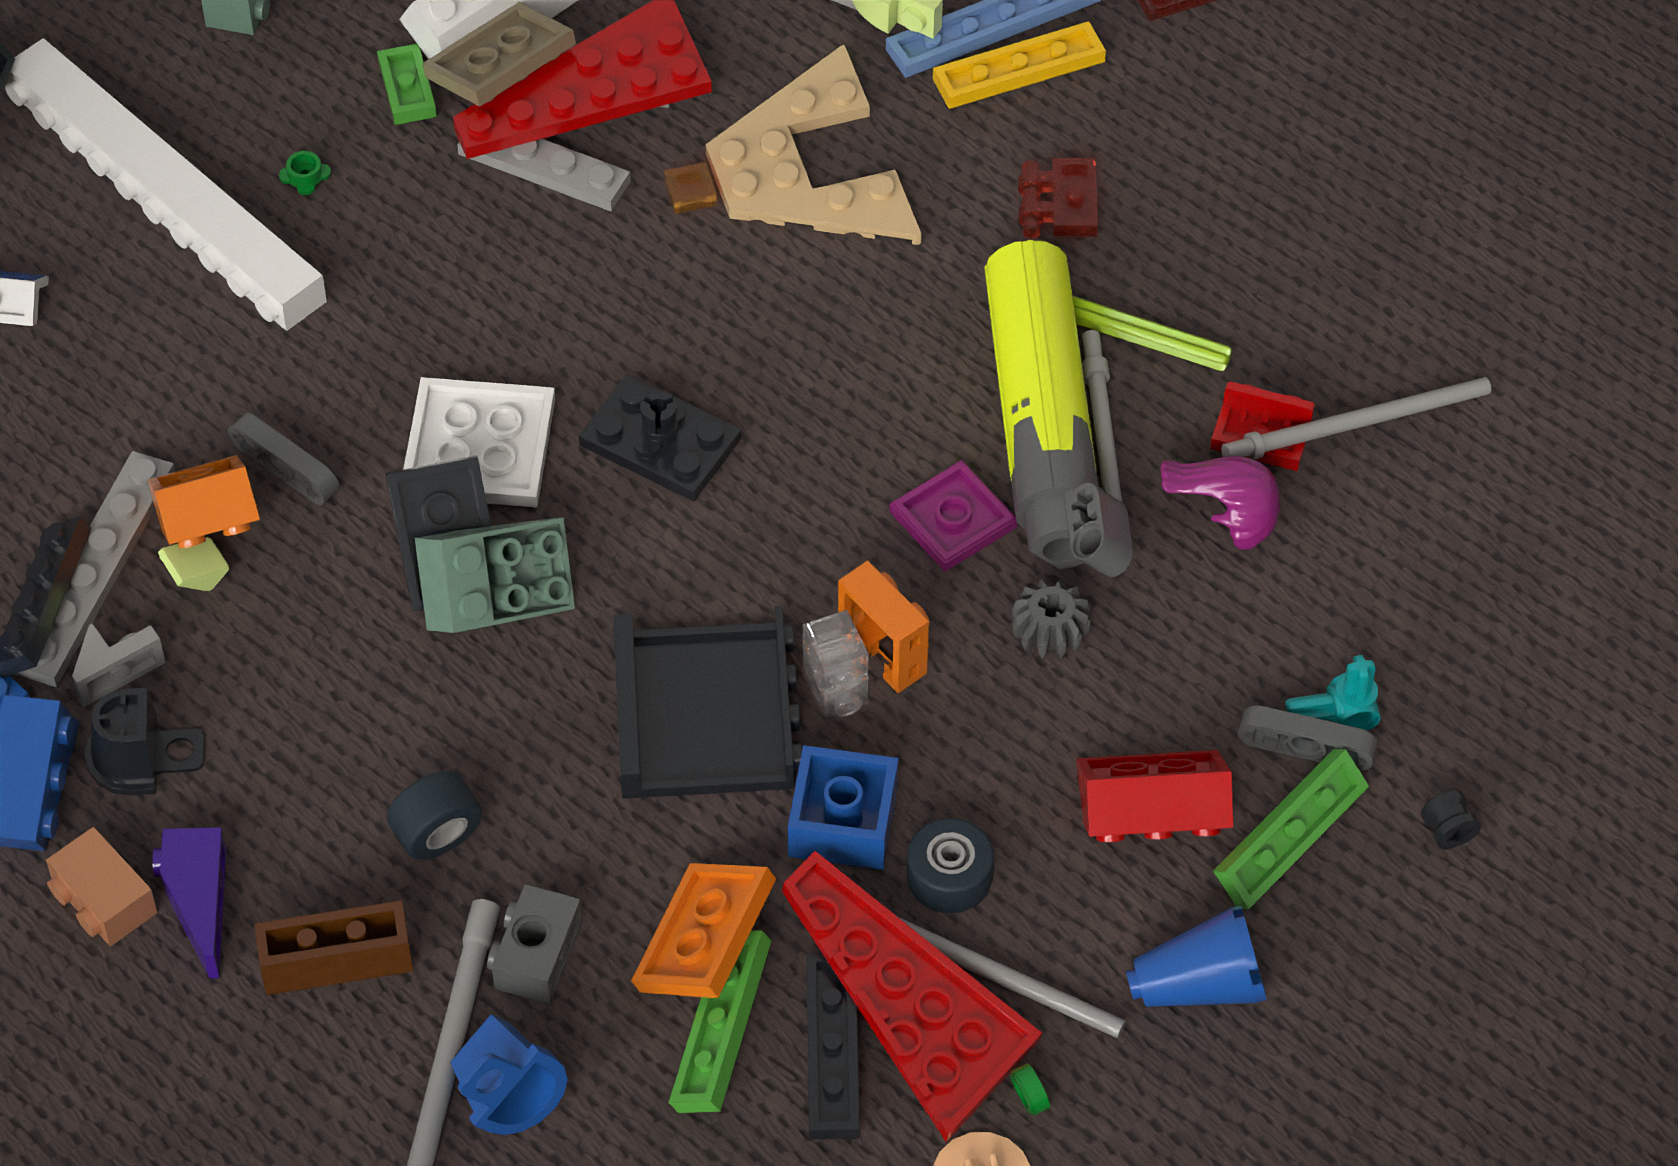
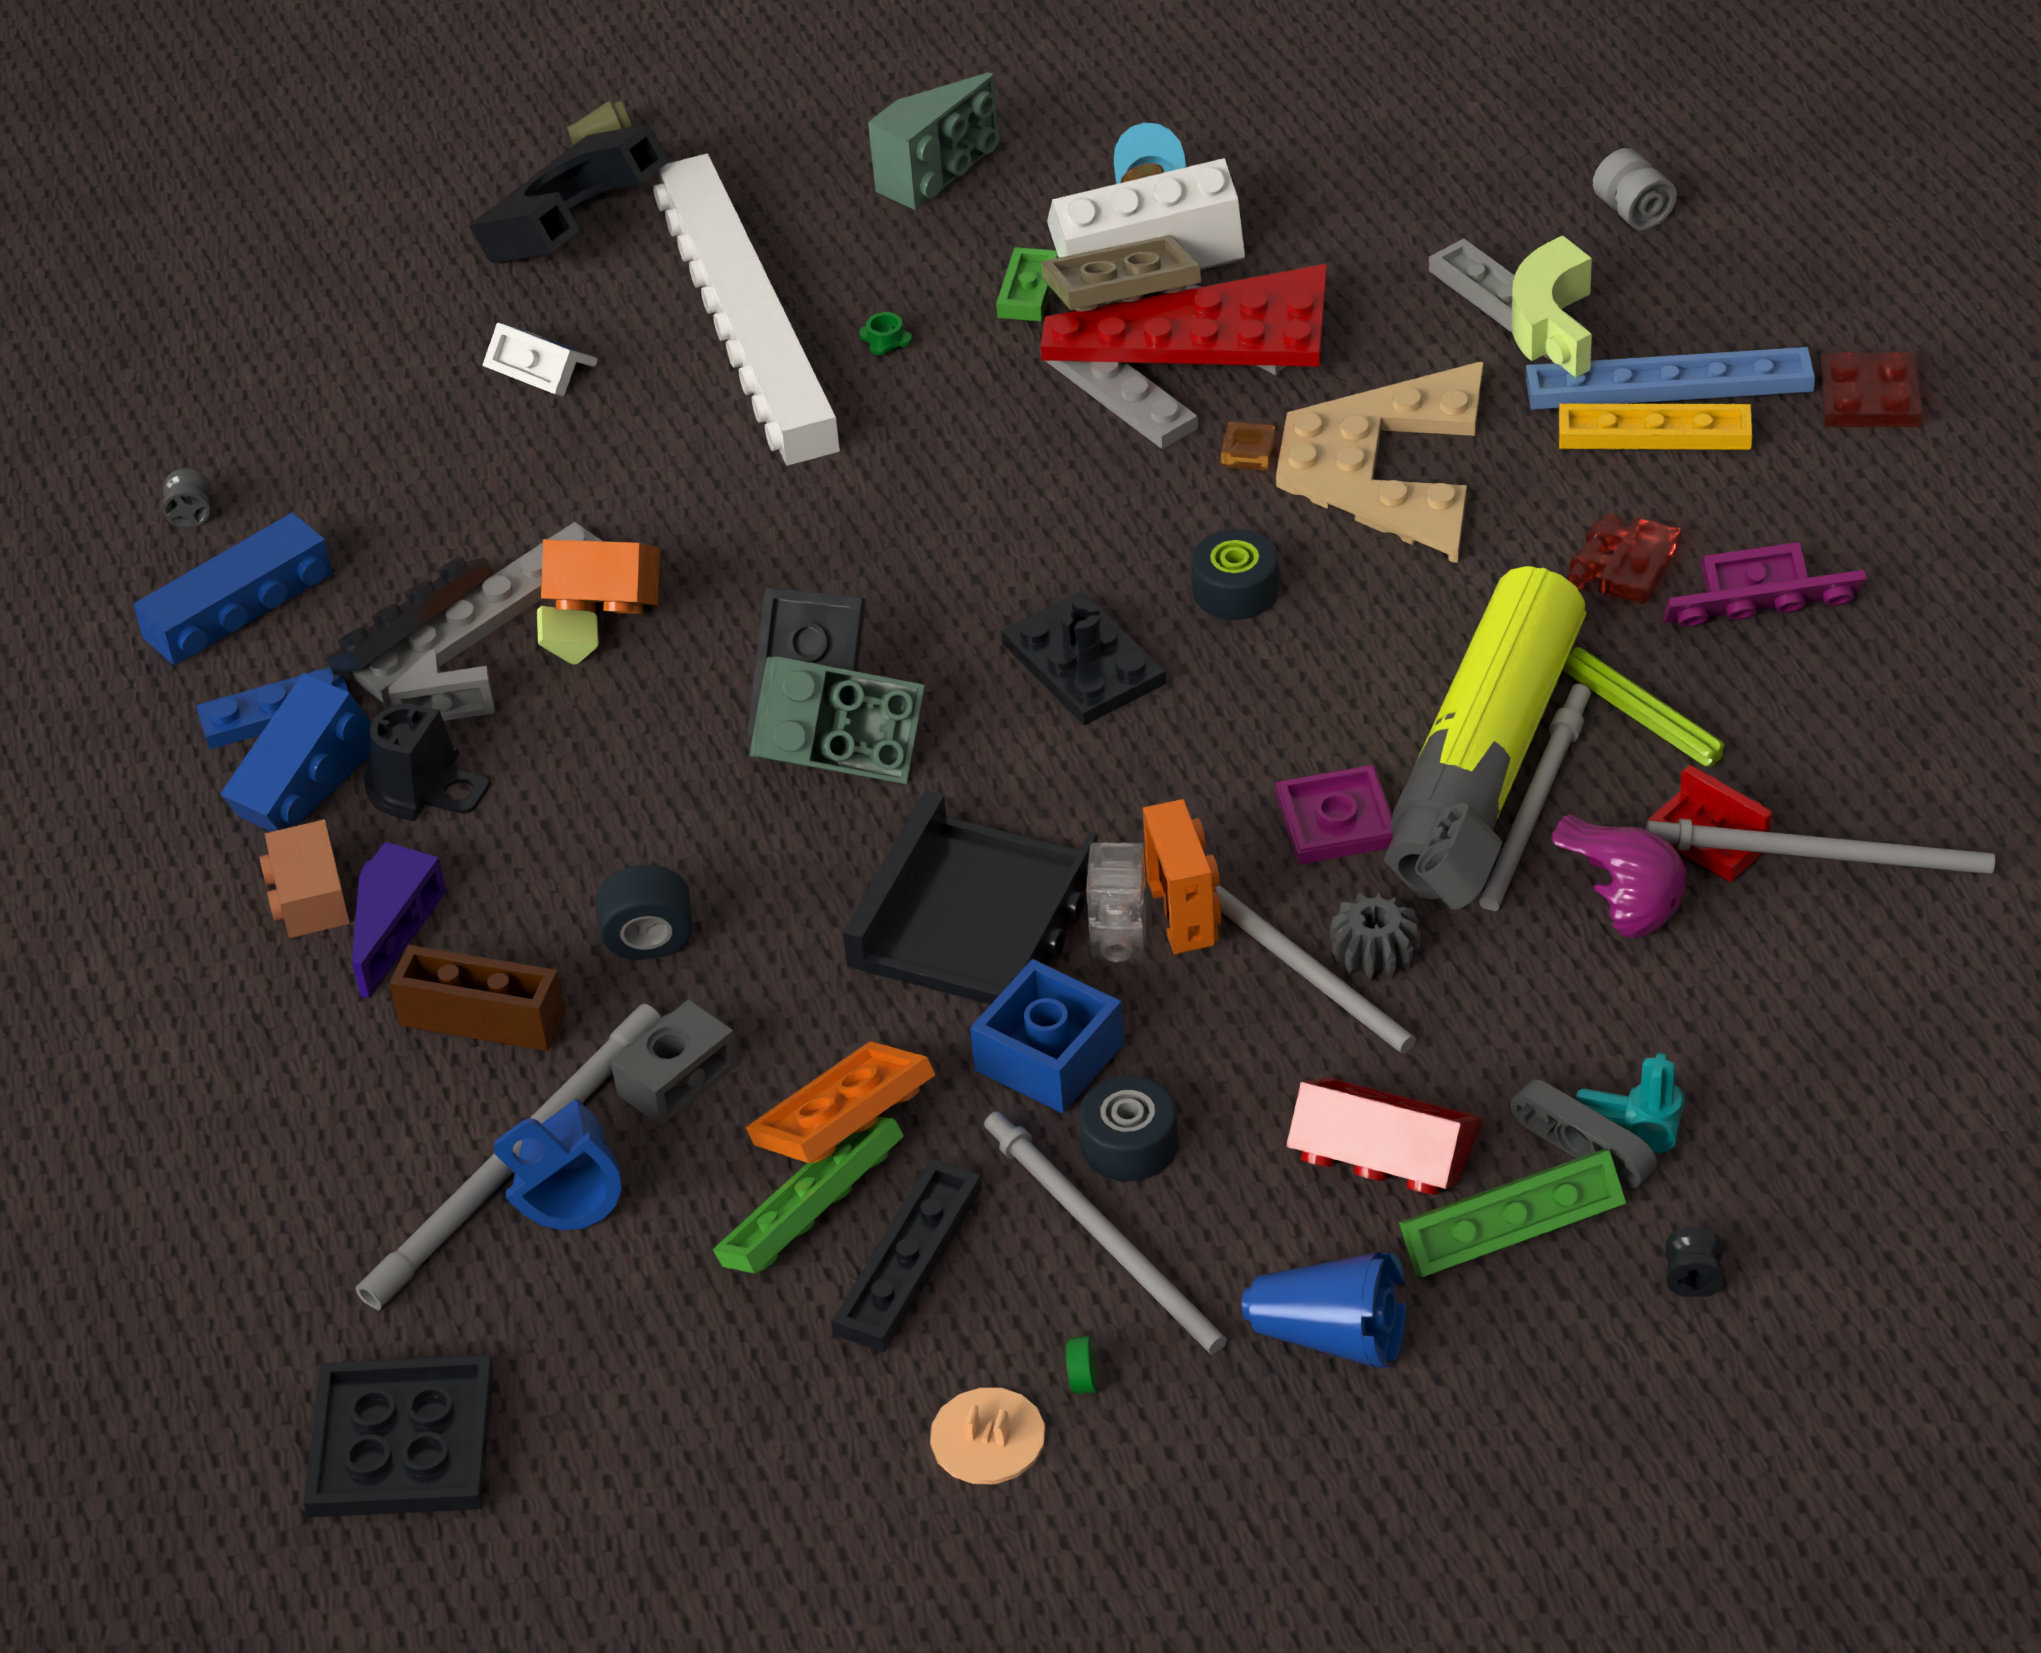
camera: 30 degrees right, 10 degrees down
(283, 458) = (708, 568): dark grey beam -> none
(496, 422) = (914, 605): white plate -> none
(750, 317) = (1235, 574): none -> black wheel
(928, 1013) = (1016, 1247): red wing -> none
(1026, 671) = (1315, 972): none -> light grey bar
(1180, 185) = (1759, 580): none -> magenta bracket

